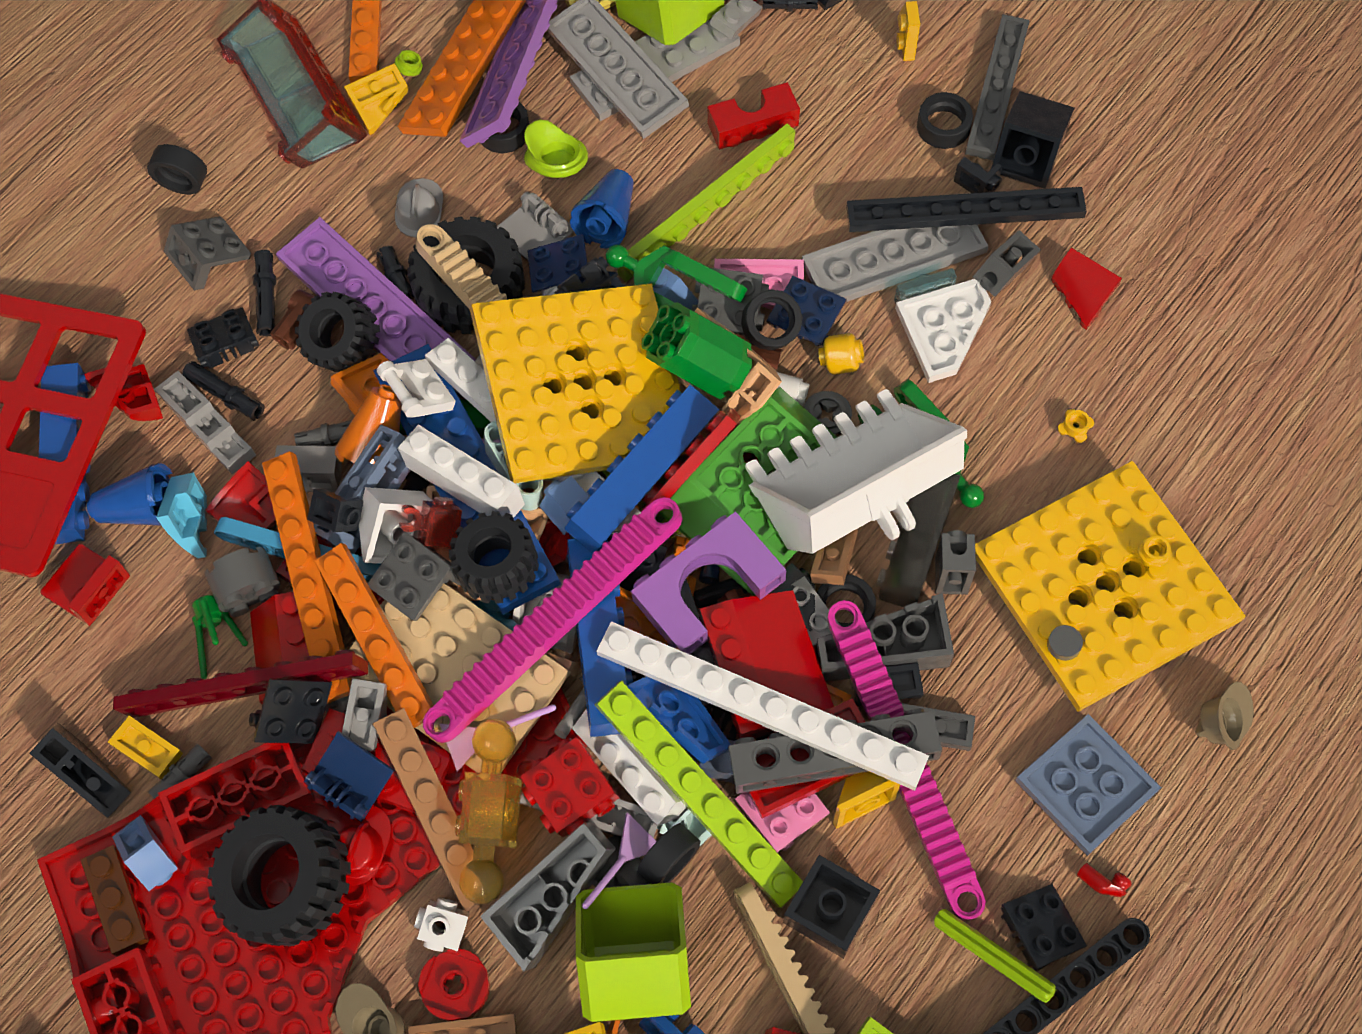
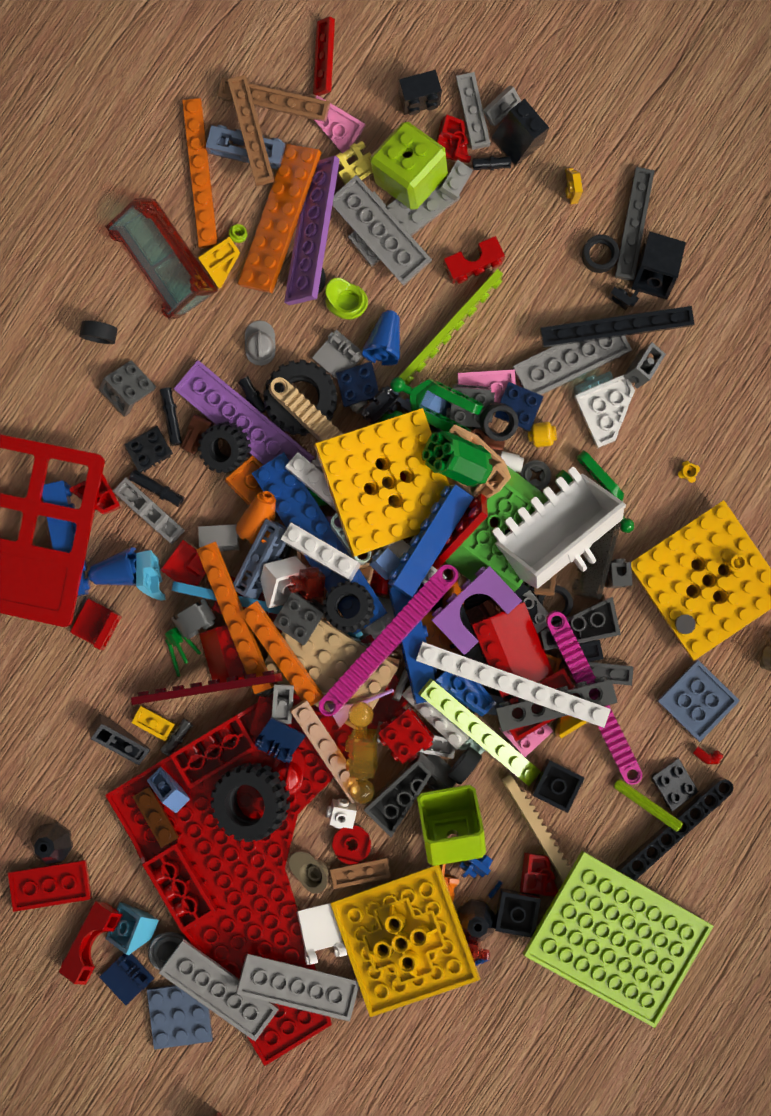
camera: 10 degrees left, 20 degrees up
(291, 711) = (240, 705): black hinge -> none
(324, 436) = (226, 514): dark grey pin -> none
(334, 511) = (246, 581): black bracket -> none
(422, 382) = (288, 489): white plate -> none
(634, 844) = (444, 760): lavender piece -> none
(1084, 285) = (693, 373): red slope -> none

